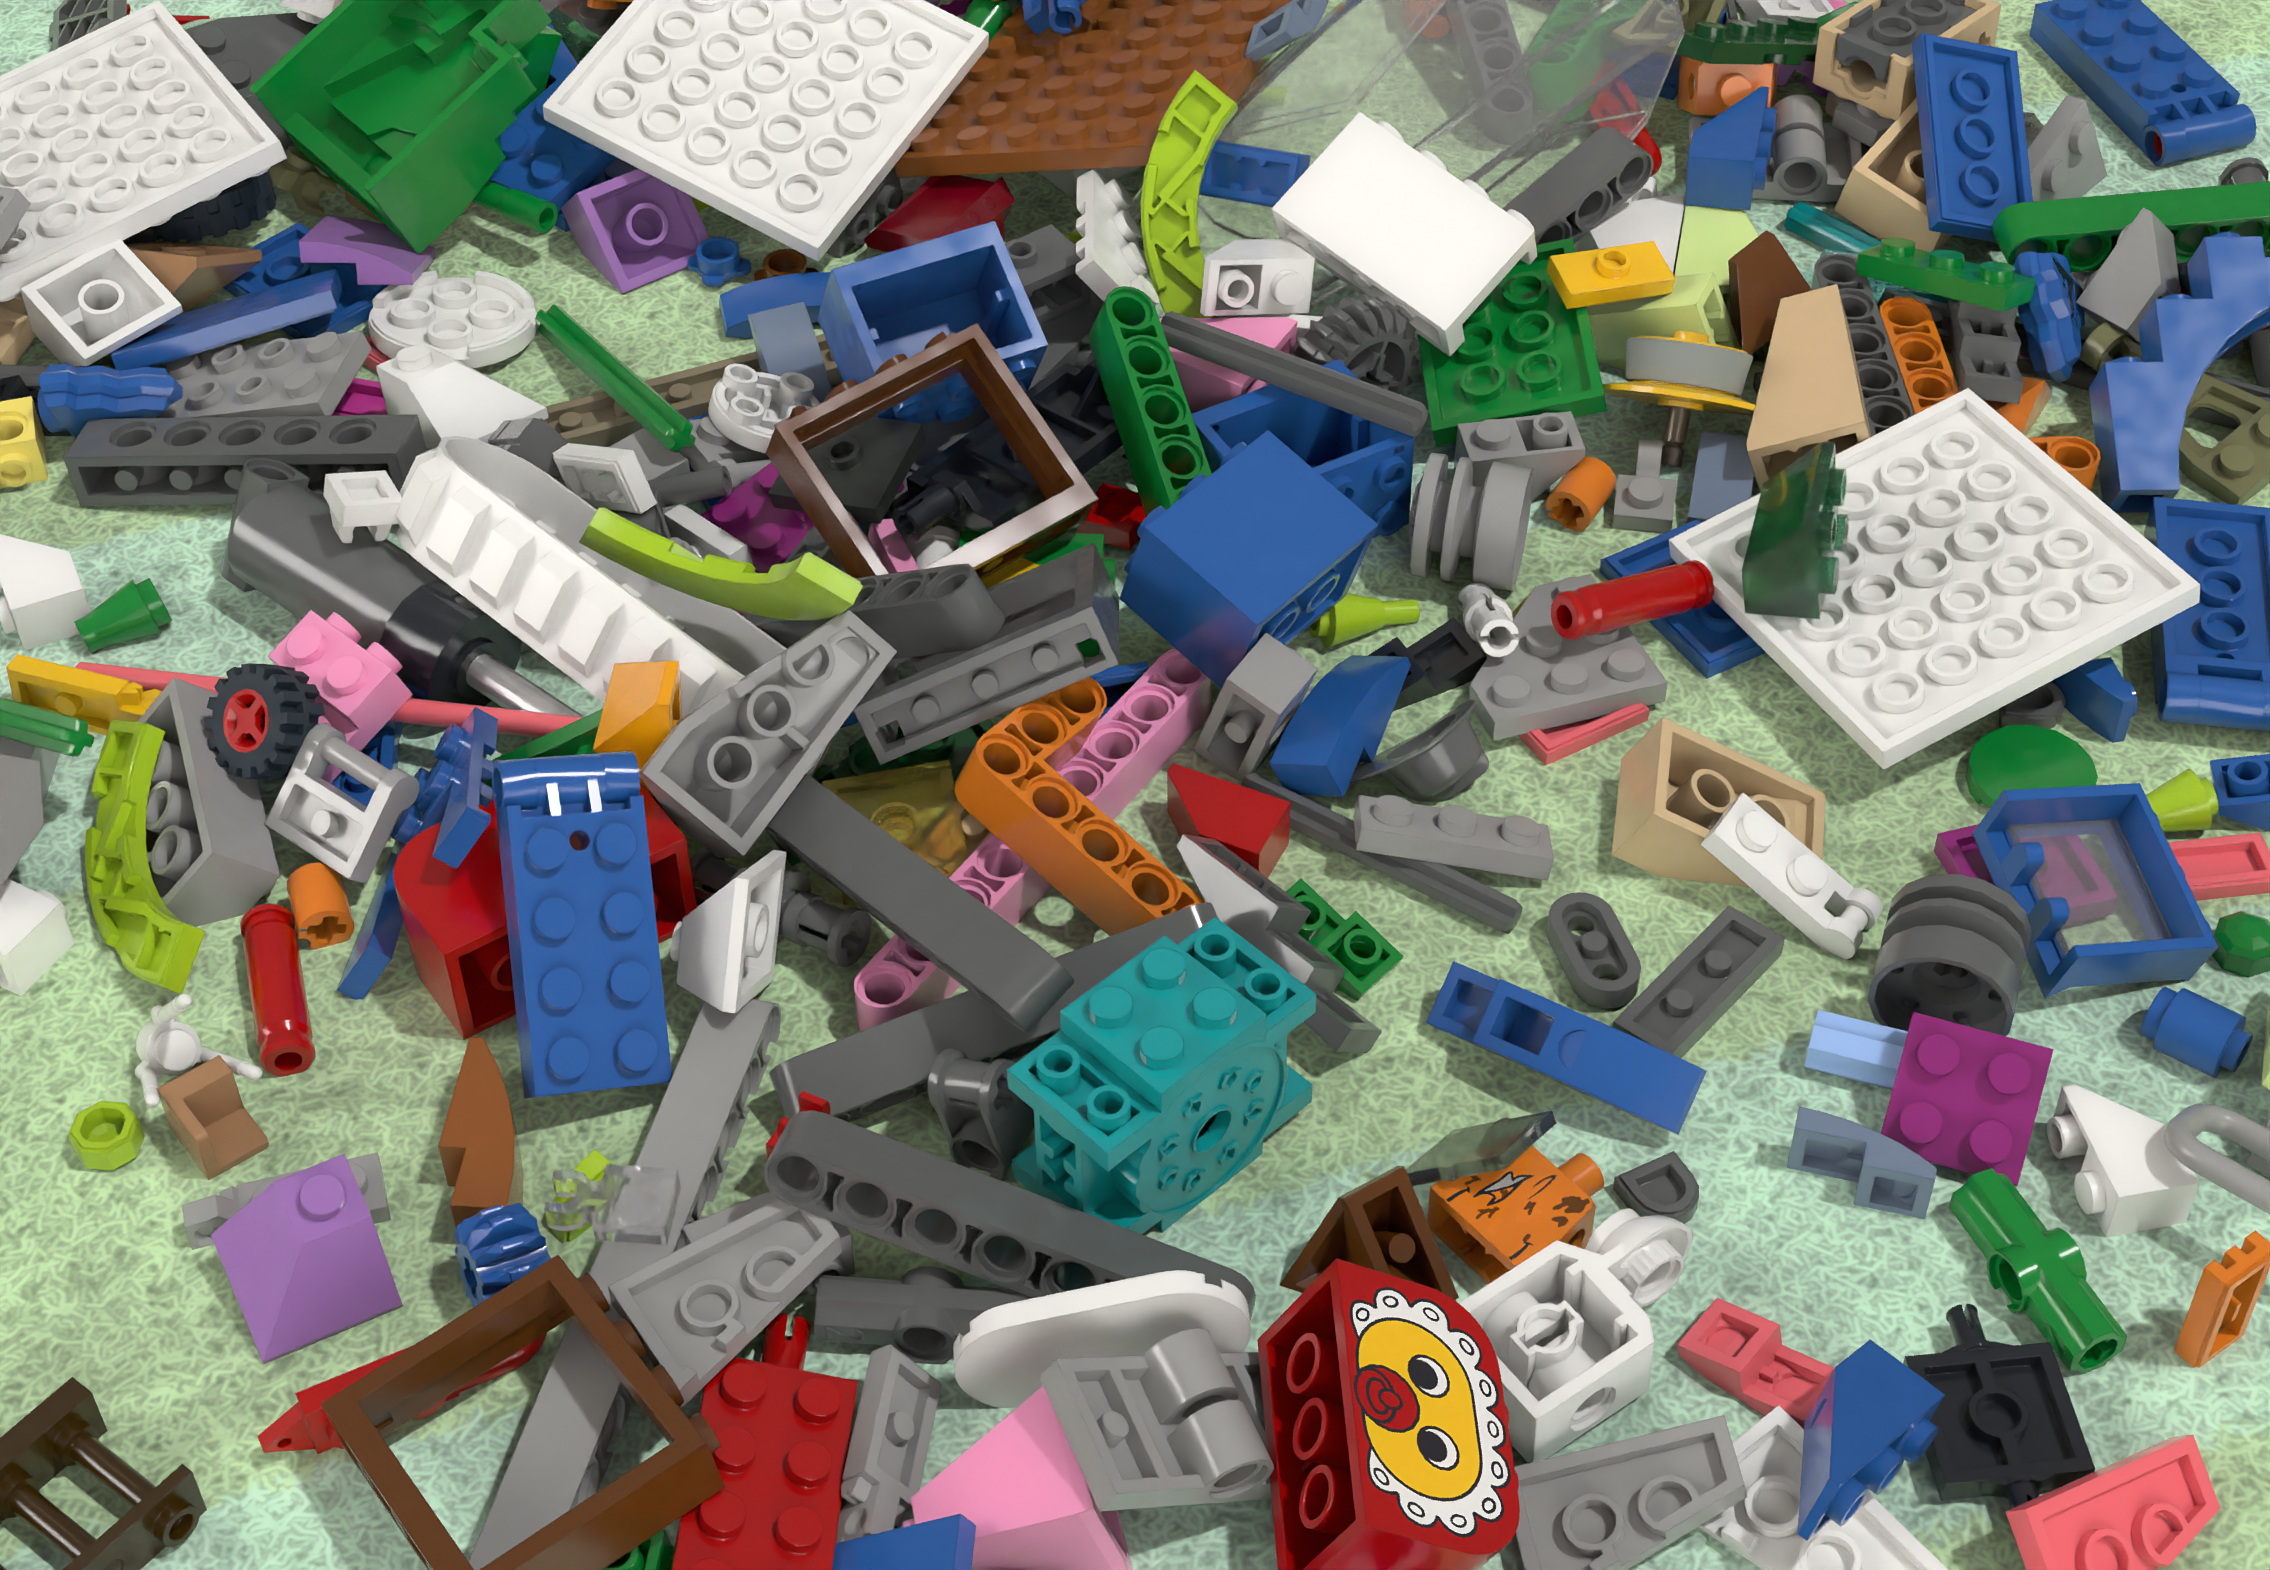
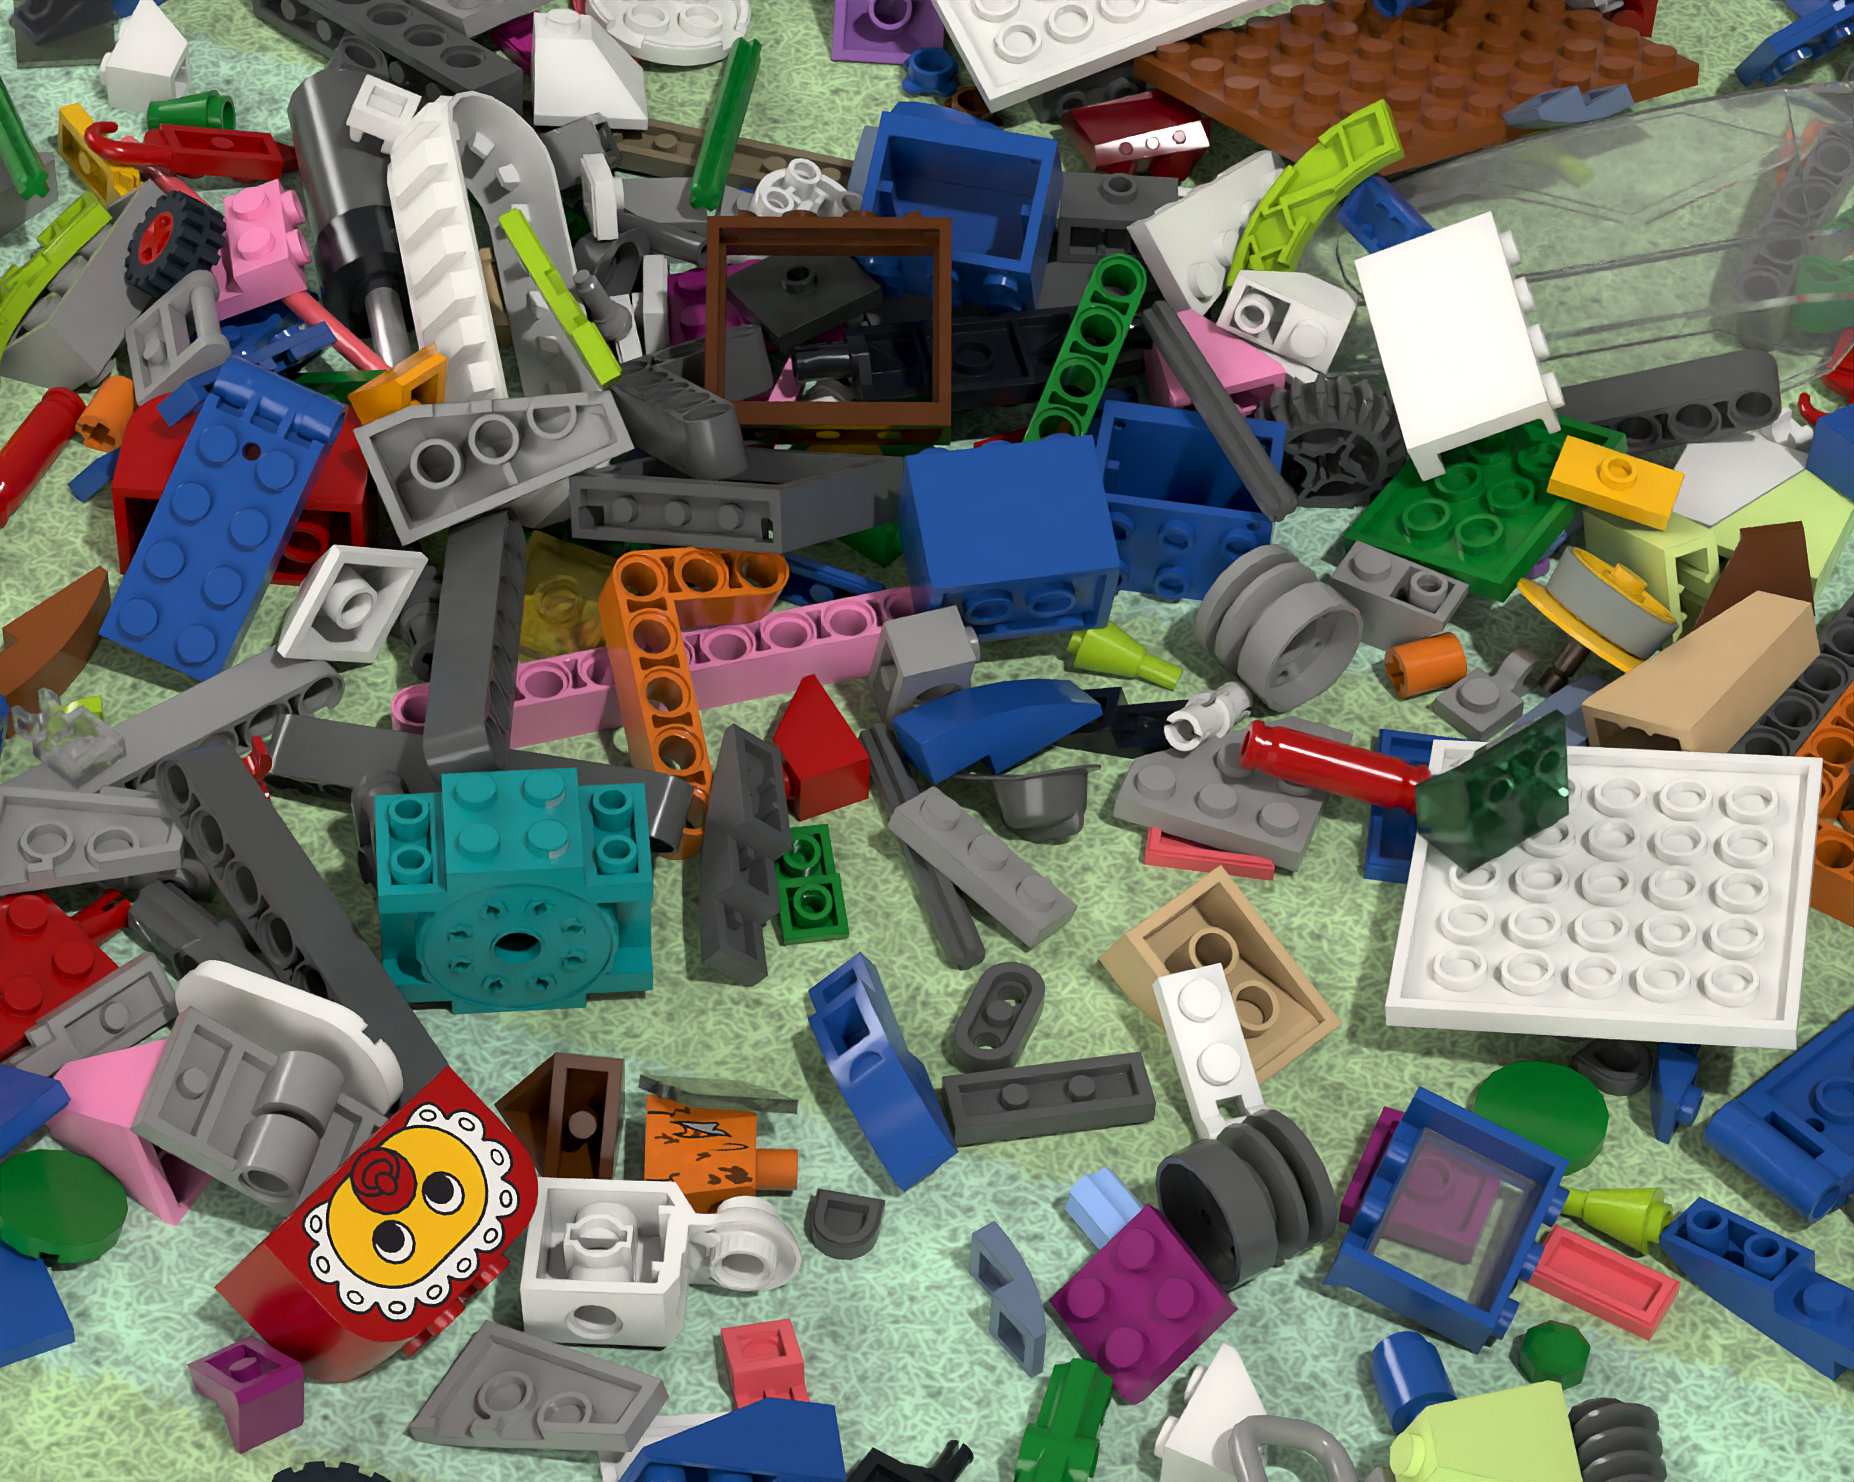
camera: 35 degrees right, 0 degrees up
(168, 639) = (198, 151): none -> red plate

